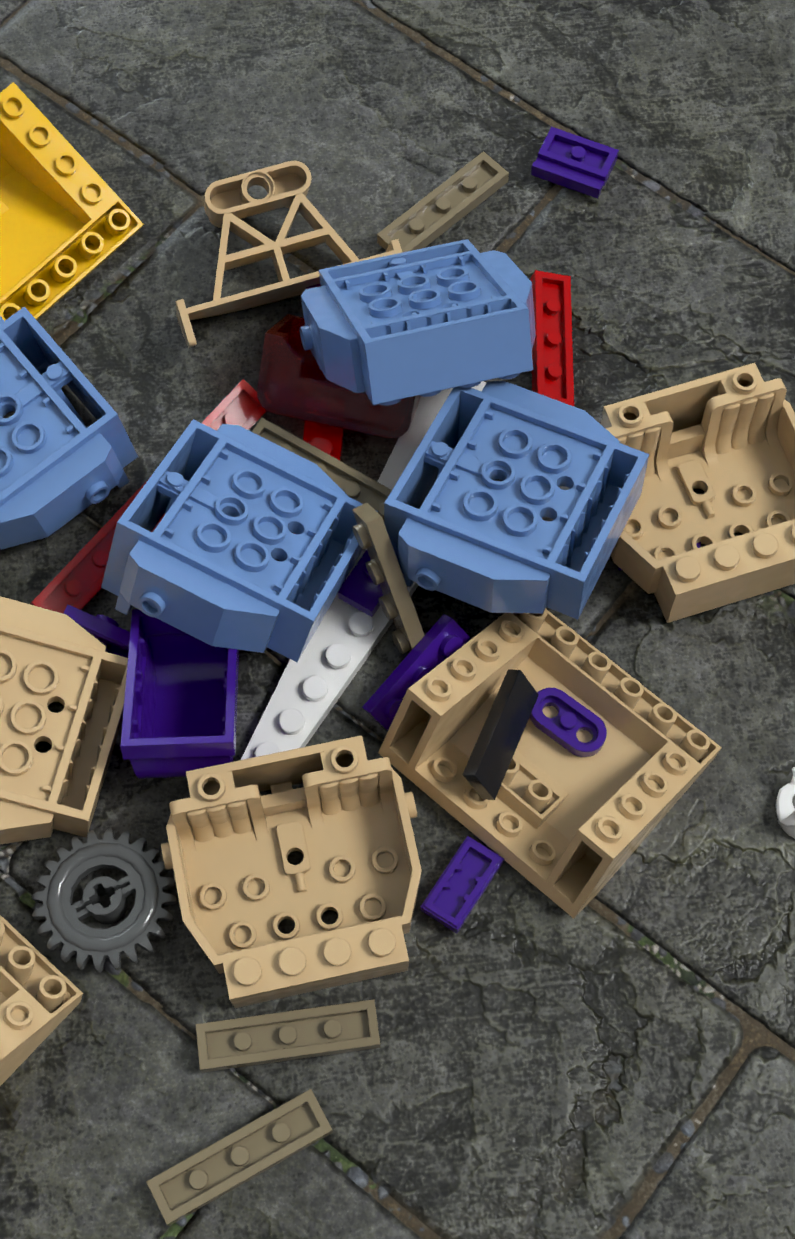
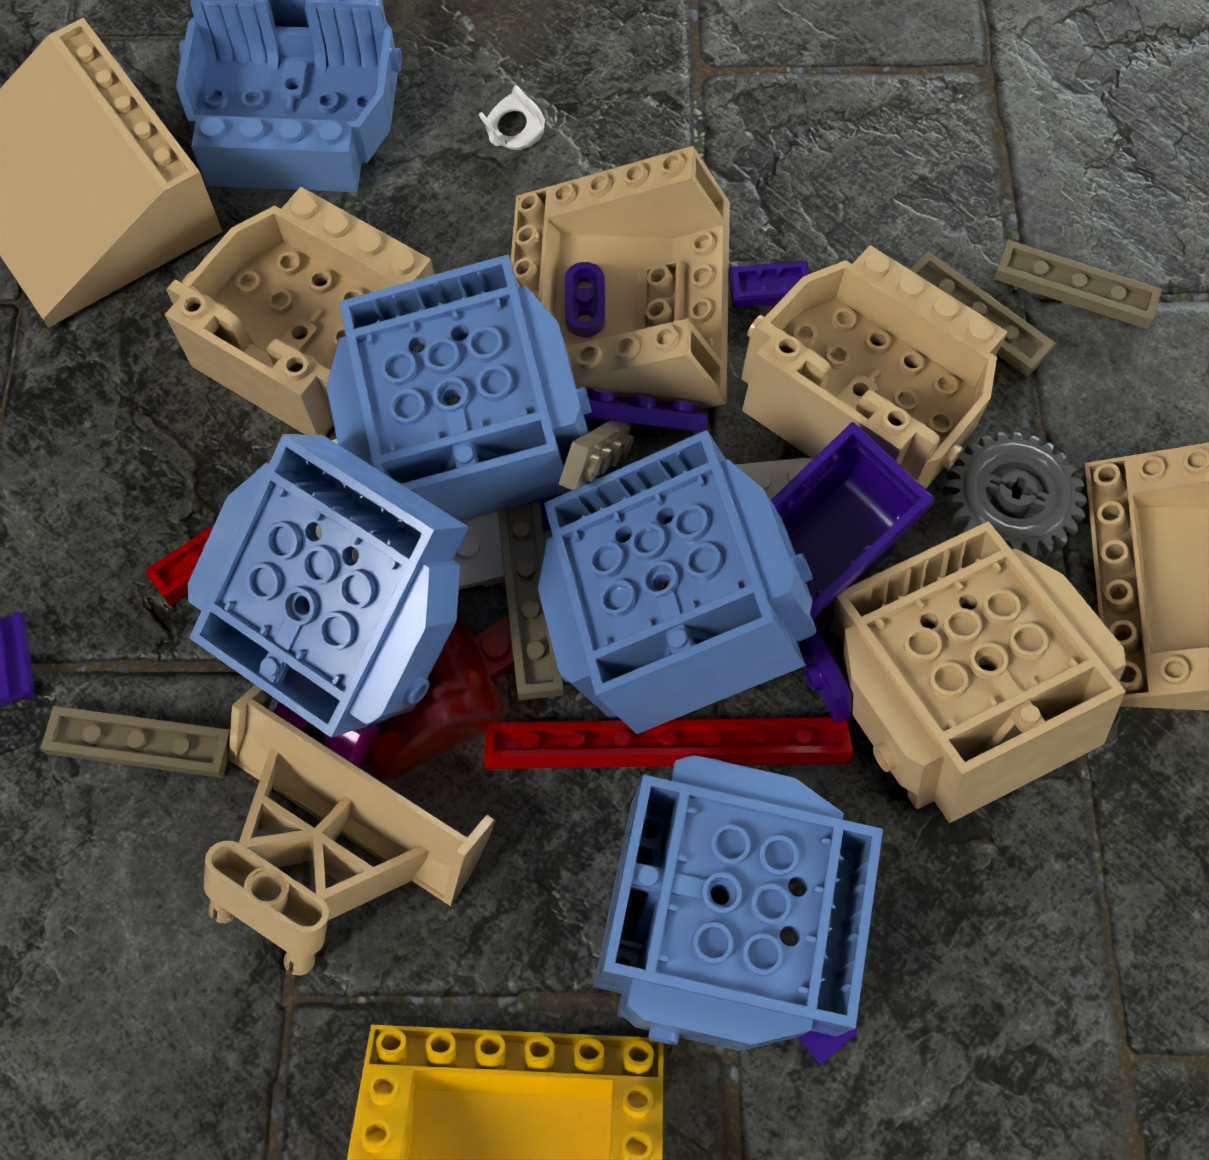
camera: 130 degrees left, 0 degrees up
(500, 734) = (646, 312): black tile -> none

